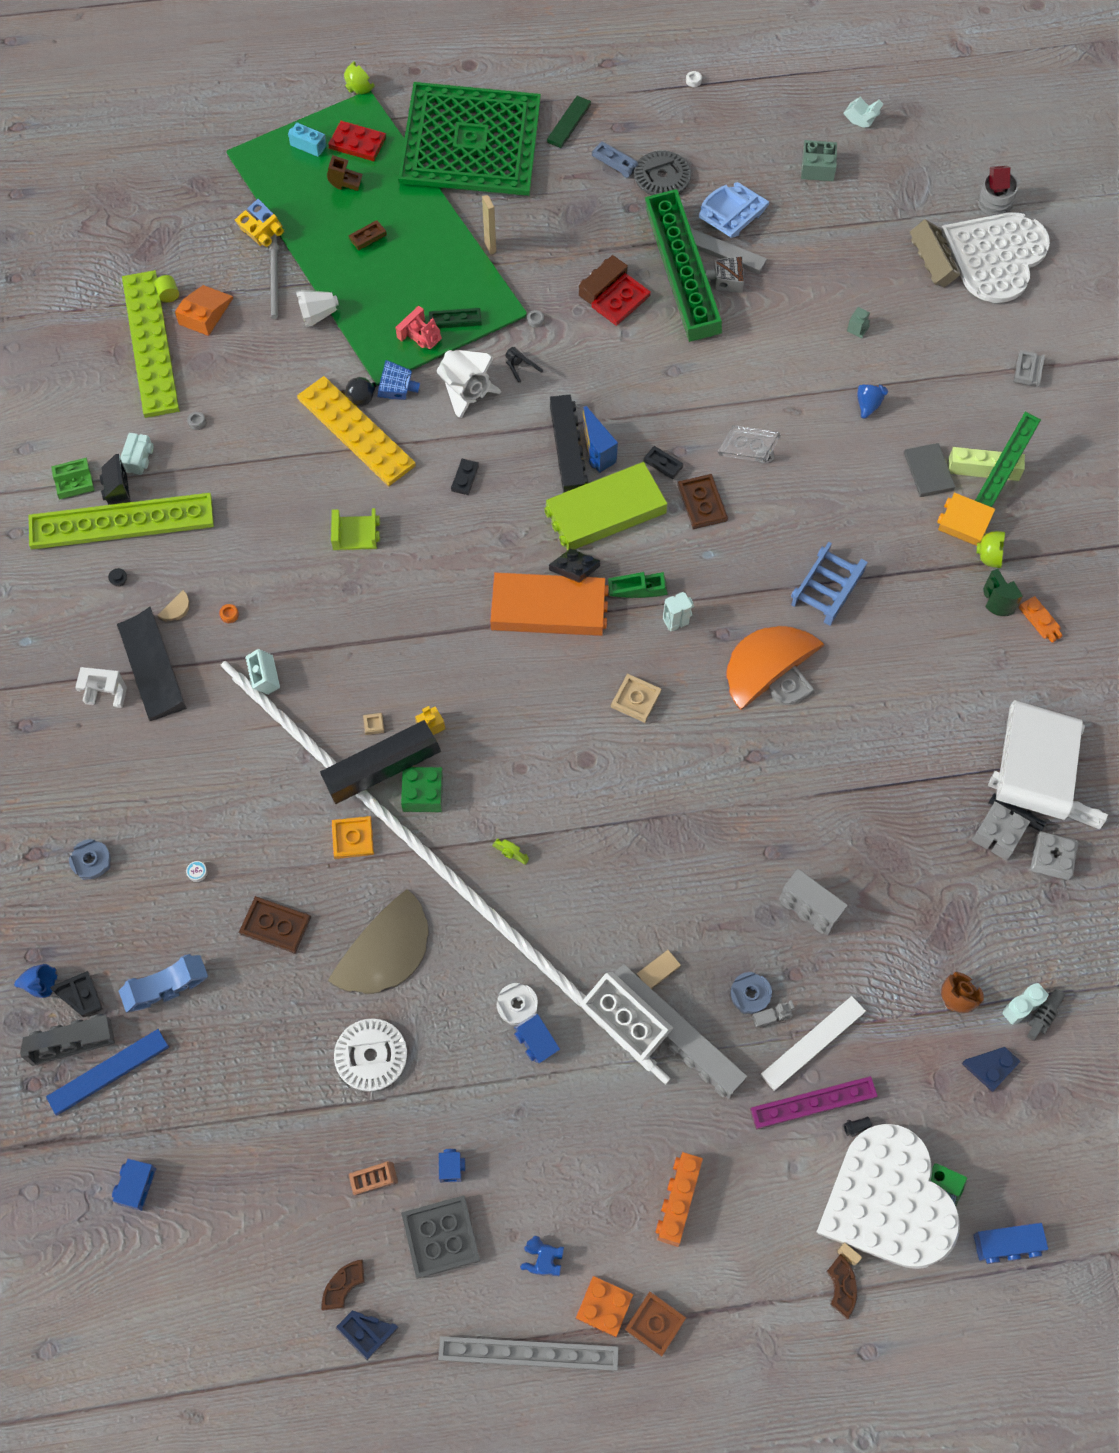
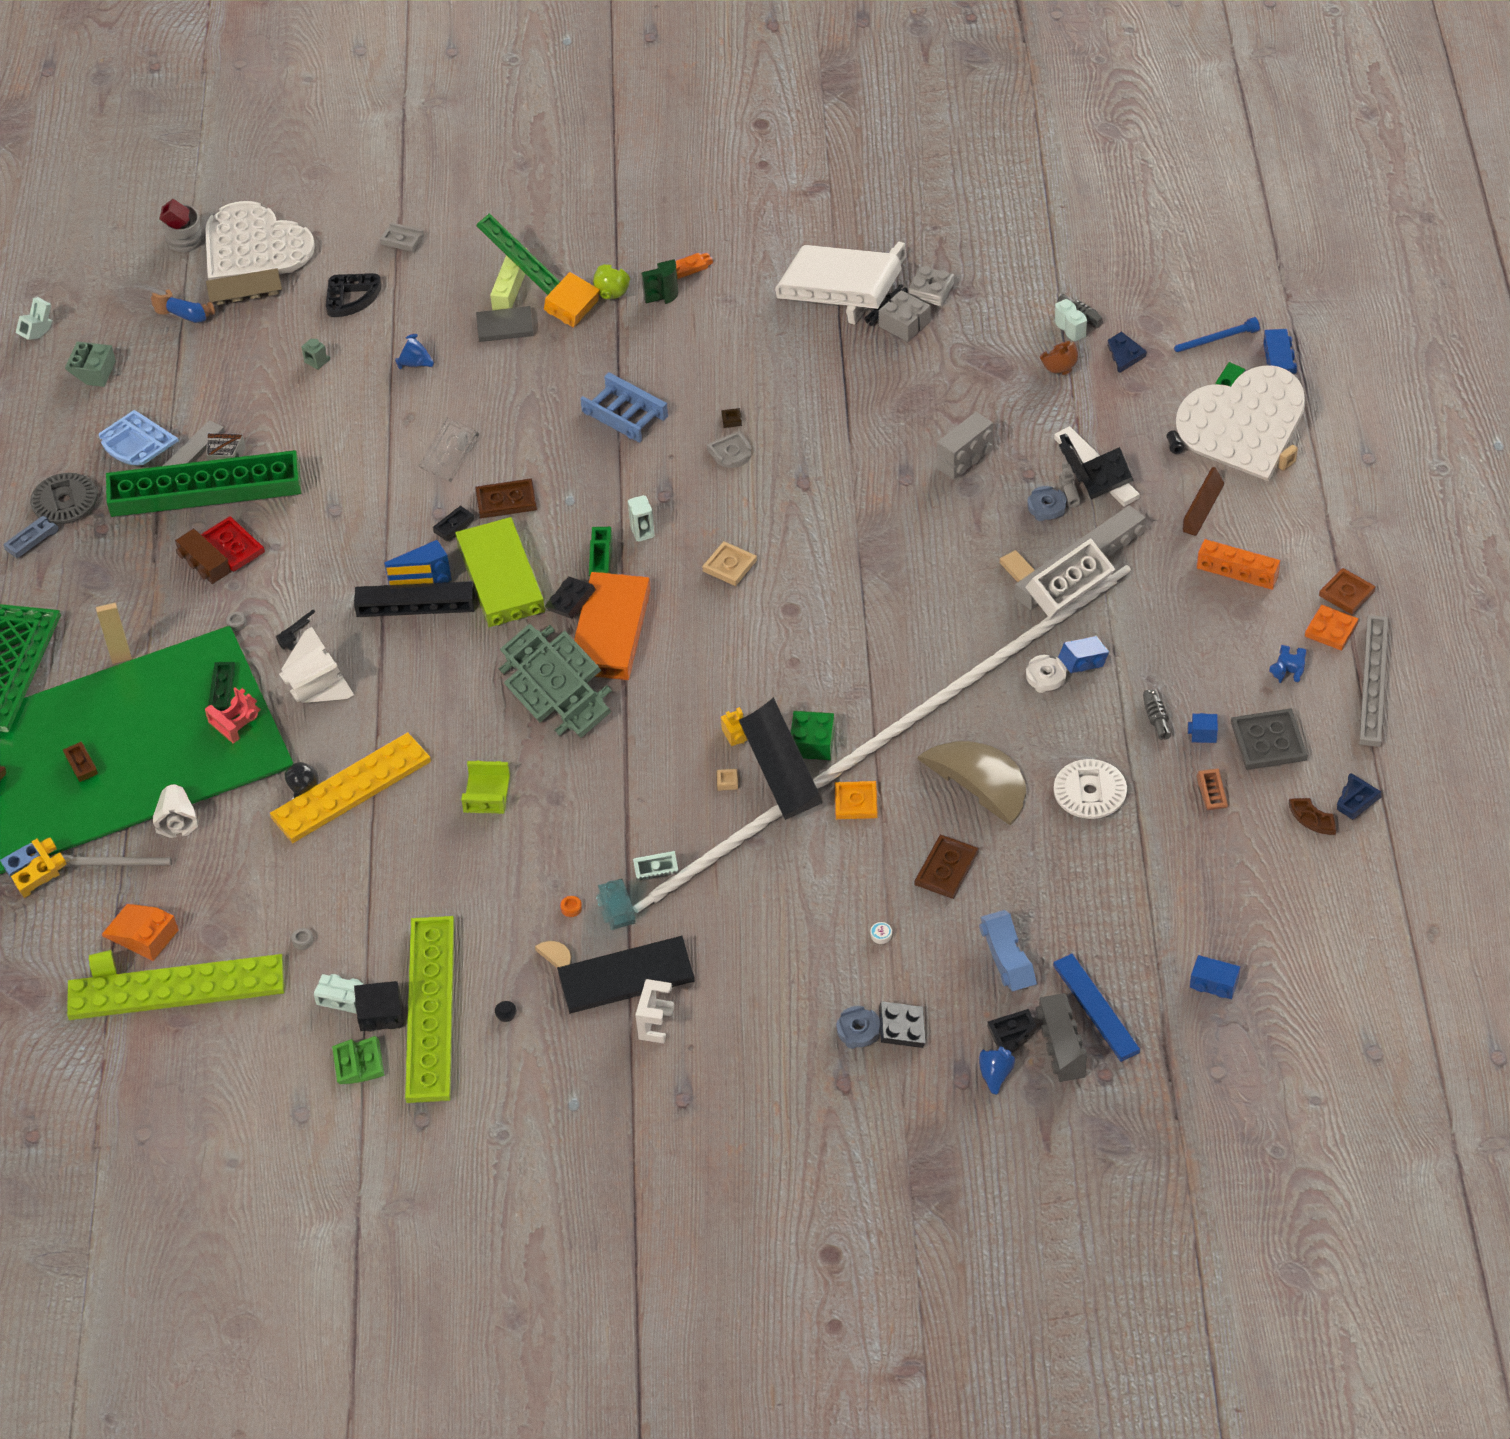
camera: 80 degrees left, 15 degrees down
(88, 896) = (902, 1024): none -> plate
(225, 646) = (616, 904): none -> clear light blue brick
(396, 382) = (297, 741): blue torso -> none
(465, 476) = (434, 691): black plate -> none
(469, 1117) = (1156, 713): none -> dark grey hinge
(474, 564) = (554, 679): none -> sand green piece
(510, 850) = (886, 669): lime plate -> none
(765, 658) = (702, 463): orange brick -> none
(771, 1160) = (1203, 502): none -> reddish brown slope
(792, 1042) = (1100, 473): none -> black bracket
(813, 1102) = (1152, 469): magenta plate -> none
(833, 681) = (731, 418): none -> dark brown tile
(844, 1286) = (1314, 467): reddish brown tile -> none
(896, 218) = (187, 310): none -> piece
(951, 331) = (371, 285): none -> black beam
(1055, 1208) = (1250, 325): none -> blue piece

